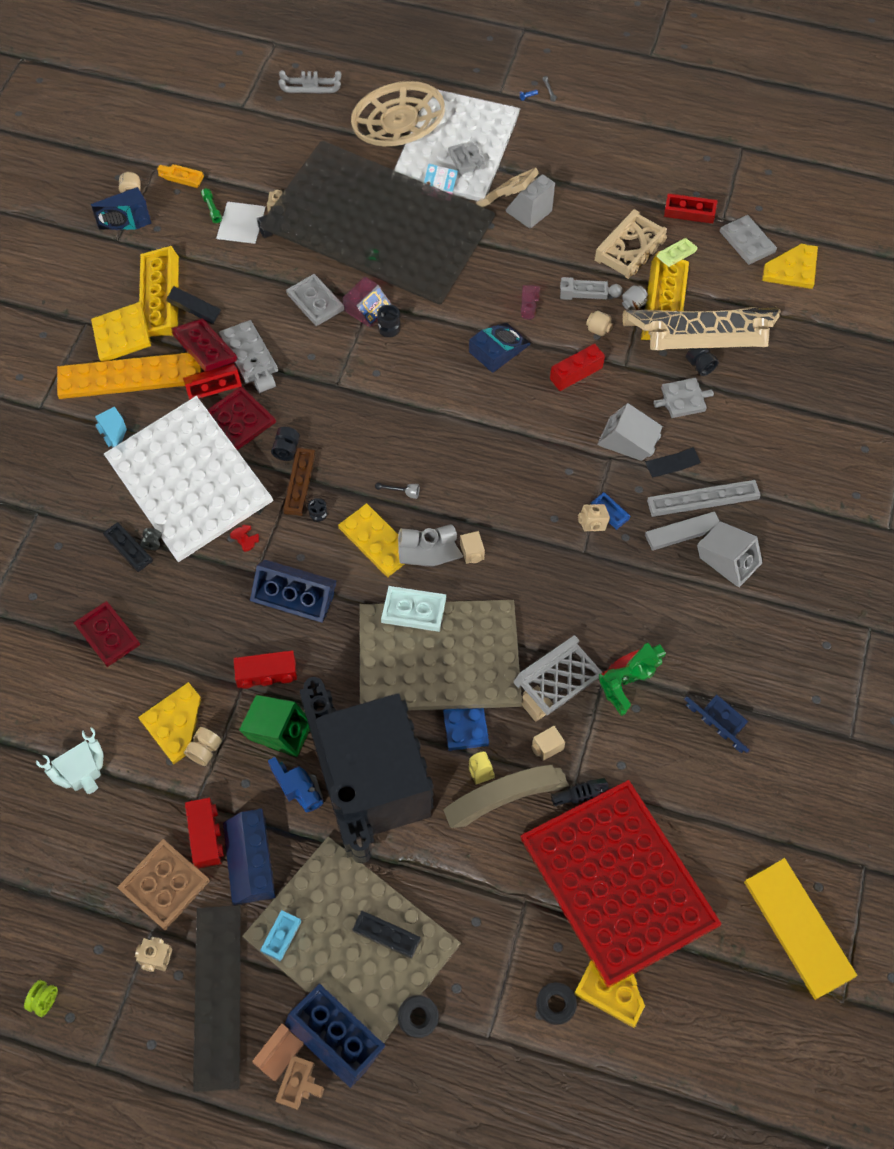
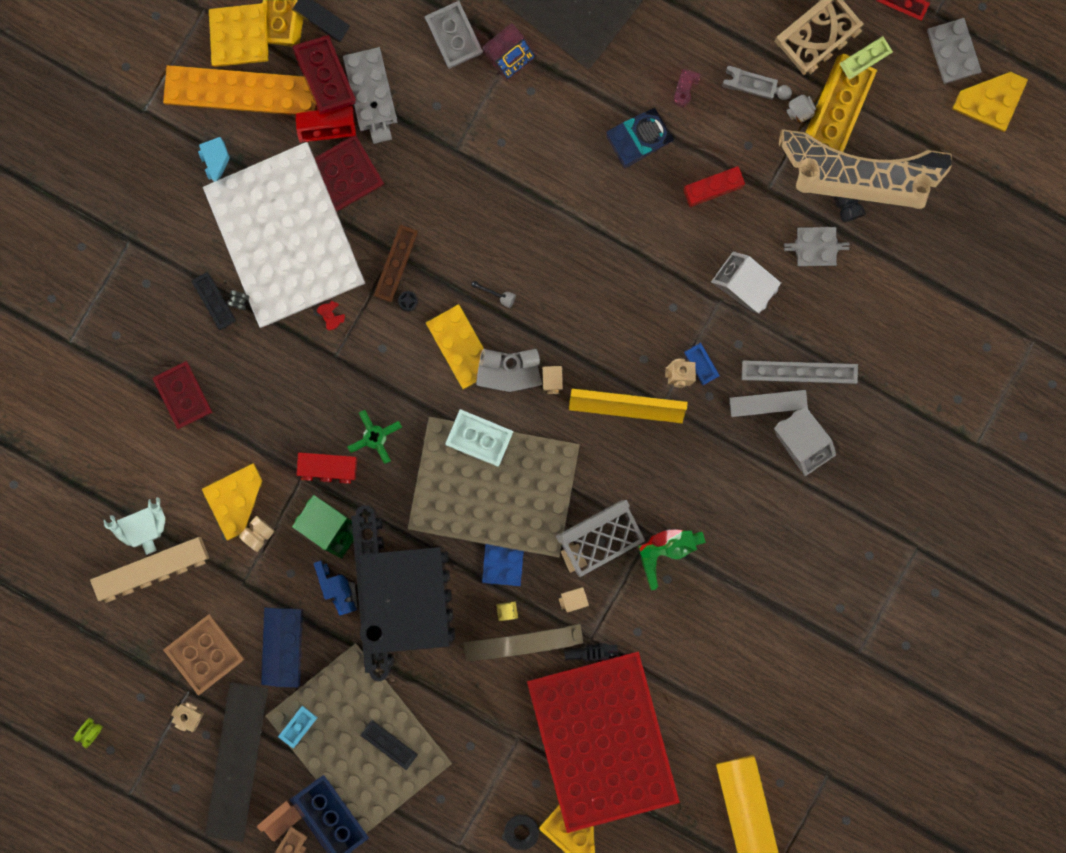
camera: 15 degrees right, 25 degrees up
(91, 807) = (149, 569): none -> tan brick
(204, 833) = (245, 615): red brick -> none
(285, 443) = (392, 211): black wheel -> none
(292, 590) = (367, 387): dark blue slope -> none
(313, 635) = (368, 434): none -> green bar
(388, 320) = (527, 83): black wheel -> none
(431, 1016) = (409, 826): black tyre -> none
(551, 552) = (627, 406): none -> yellow arch
(599, 323) = (754, 133): tan head -> none
(673, 462) = (782, 320): black sticker -> none
(724, 718) = (742, 611): dark blue bracket -> none

